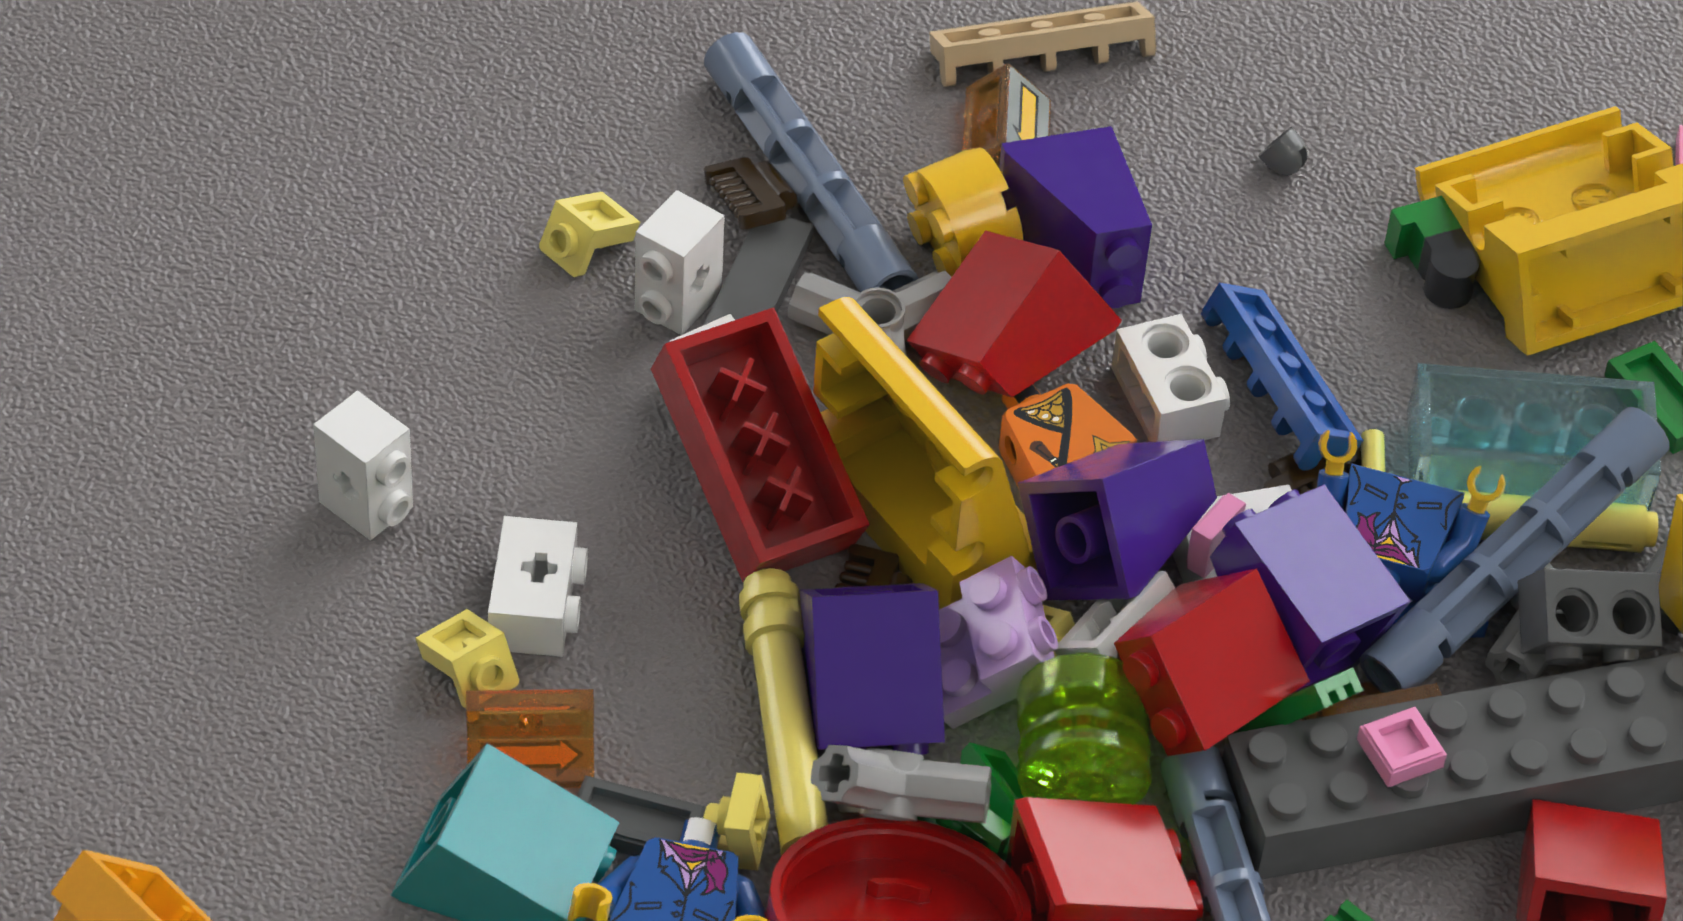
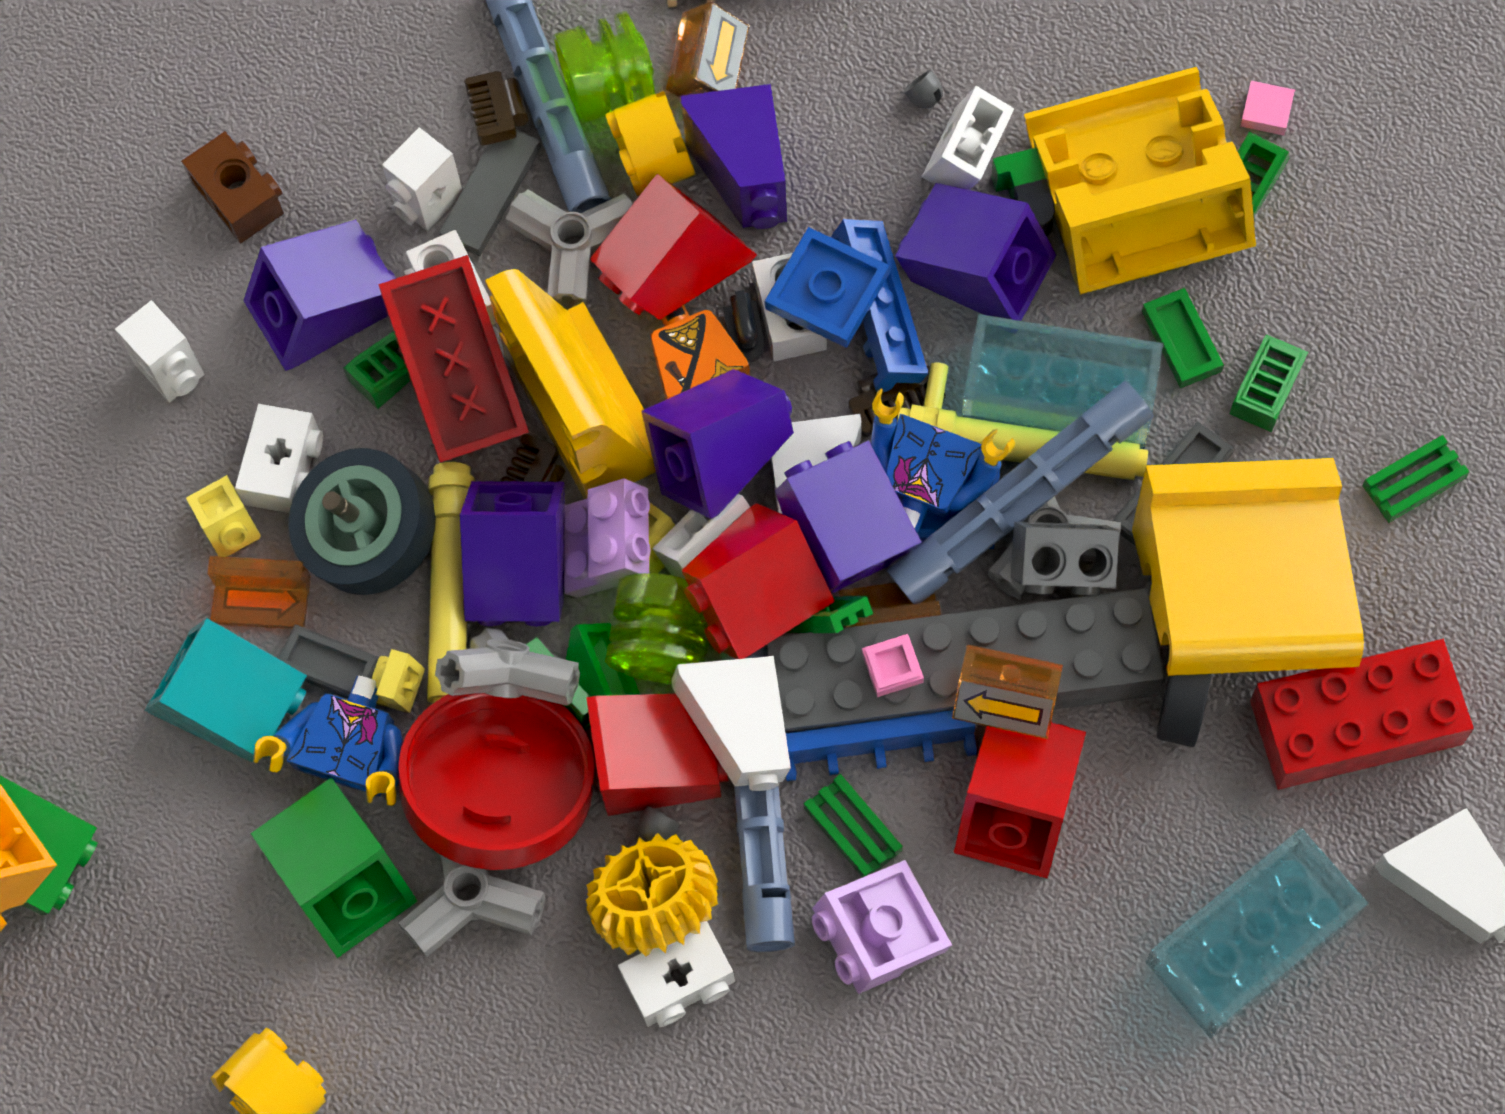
camera: 15 degrees right, 20 degrees up
(425, 291) = (240, 209): none -> reddish brown brick
(555, 397) = (316, 291): none -> slope
(581, 226) = (364, 133): light yellow bracket -> none
(647, 506) = (371, 359): none -> green slope
(663, 642) = (362, 521): none -> wheel
(887, 129) = (604, 66): none -> clear neon green wheel
(1117, 394) = (745, 325): none -> black piece
(1208, 533) = (790, 455): bright pink tile -> none
(1213, 818) = (738, 716): none -> white slope
(1222, 344) = (827, 287): none -> blue plate
(1355, 196) = (968, 140): none -> white brick
(1388, 853) = (877, 738): none -> blue hinge
(1389, 306) = (977, 251): none -> dark purple slope
(1556, 769) = (1007, 691): none -> panel

